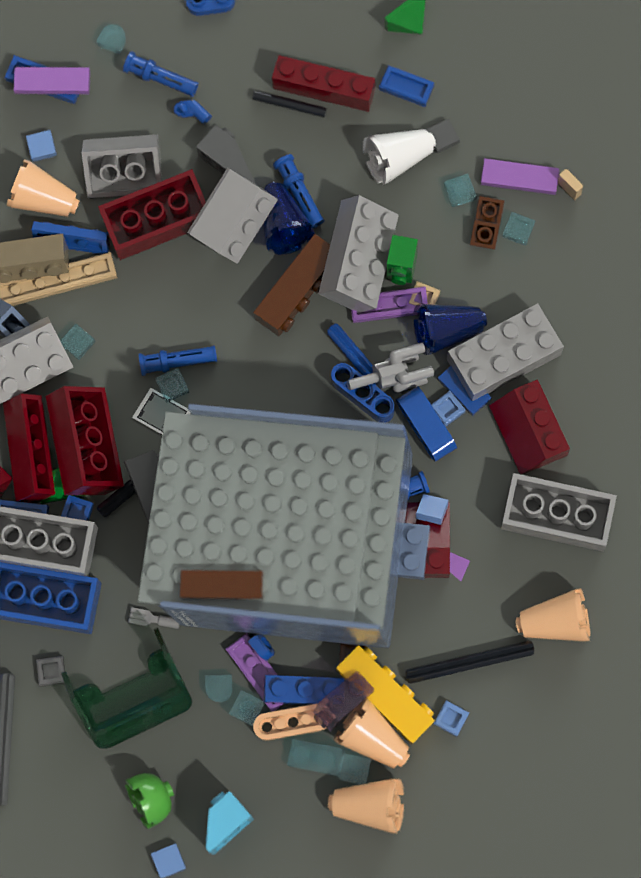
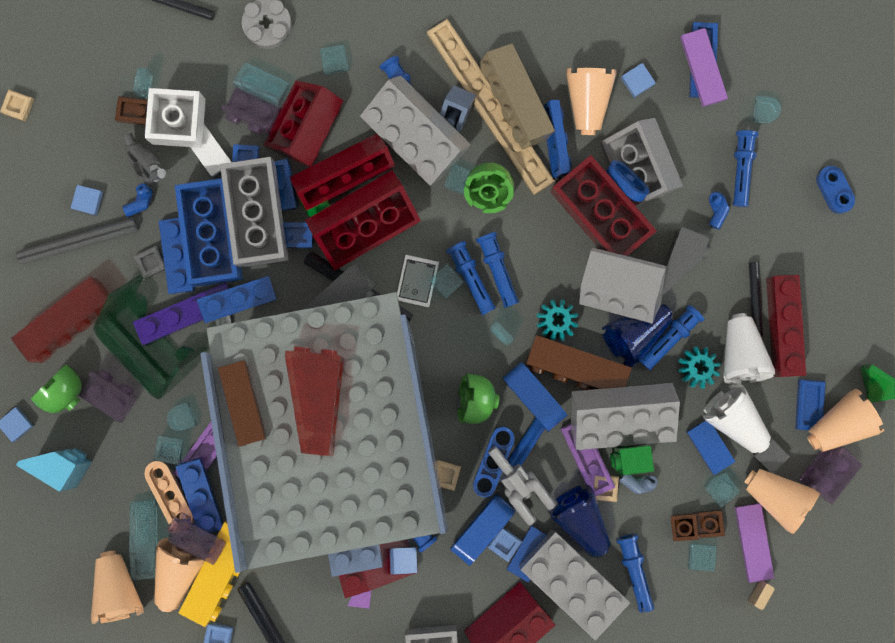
camera: 70 degrees right, 10 degrees up
(53, 642) = (174, 256): none -> blue plate
(79, 774) = (61, 321): none -> clear red brick
(95, 312) = (489, 187): none -> bright green cylinder
(115, 651) = (172, 318): none -> dark purple plate
(118, 592) = (236, 299): none -> blue plate
(135, 181) = (627, 181): none -> blue plate
(165, 331) = (494, 258): none -> blue pin
(171, 753) = (108, 395): none -> clear purple bracket
(234, 508) = (315, 395): none -> clear red slope
(239, 297) = (548, 319): none -> teal gear
(241, 347) = (501, 334): none -> clear light blue tile
(295, 388) = (476, 400): none -> bright green cylinder
(312, 333) = (535, 396): none -> blue beam
(336, 126) = (745, 352): none -> white cone
(336, 165) = (691, 372): none -> teal gear
(415, 188) = (710, 447): none -> blue tile
(431, 264) = (639, 485): none -> sand blue arm
(432, 57) = (846, 423): none -> light nougat cone
(475, 86) = (831, 473): none -> clear purple bracket
(483, 136) = (782, 498): none -> light nougat cone
(501, 292) = (633, 561): none -> blue pin

